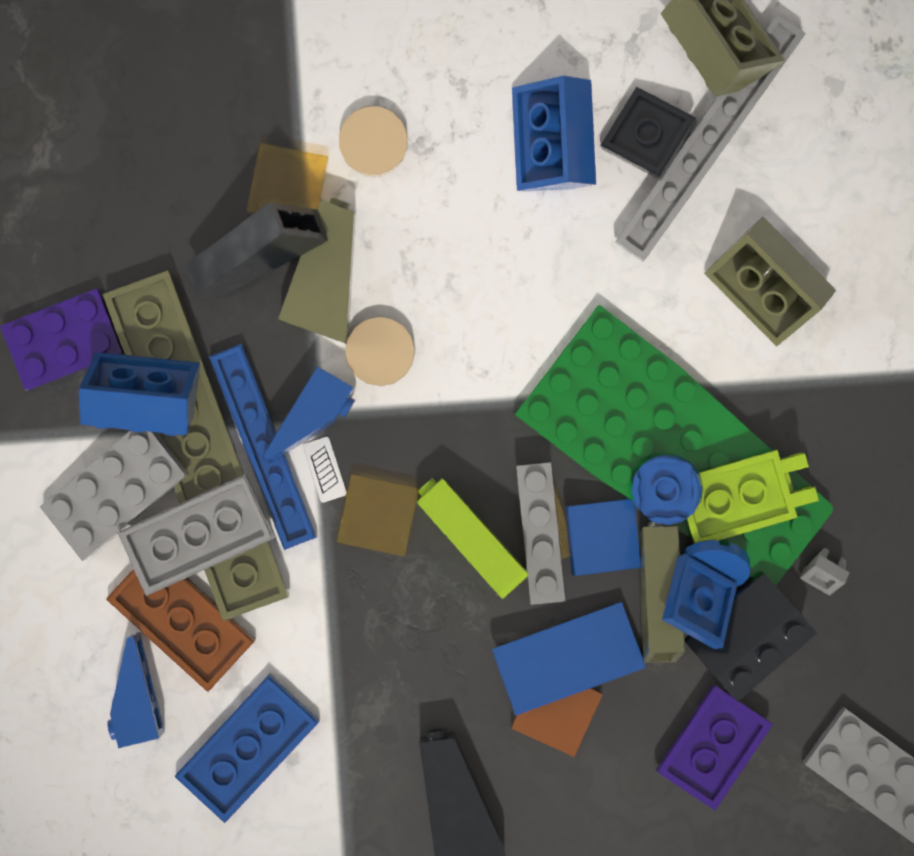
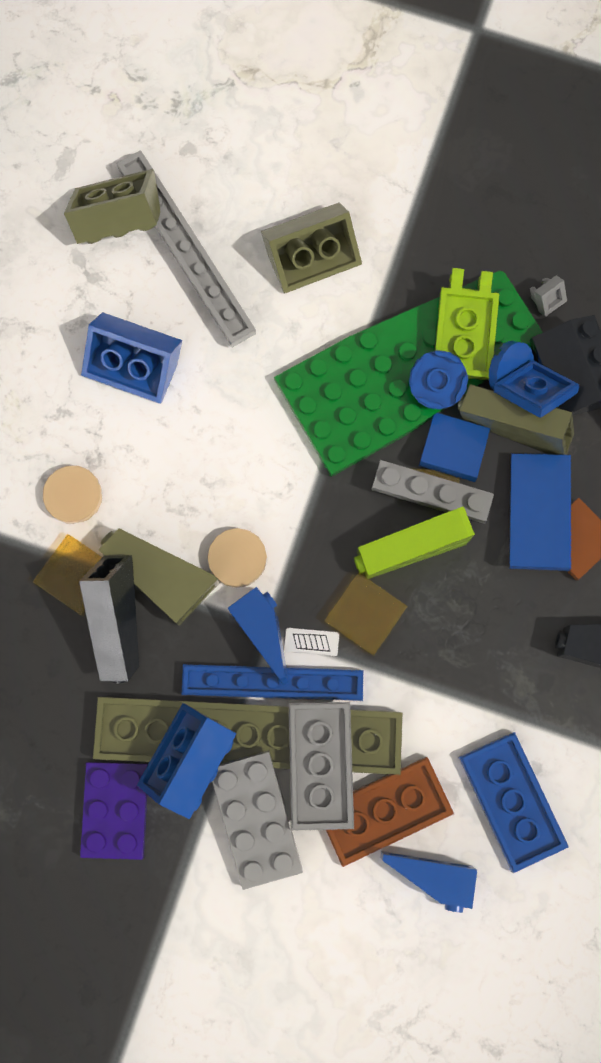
camera: 70 degrees left, 10 degrees down
(648, 133) = (161, 288): black tile -> none

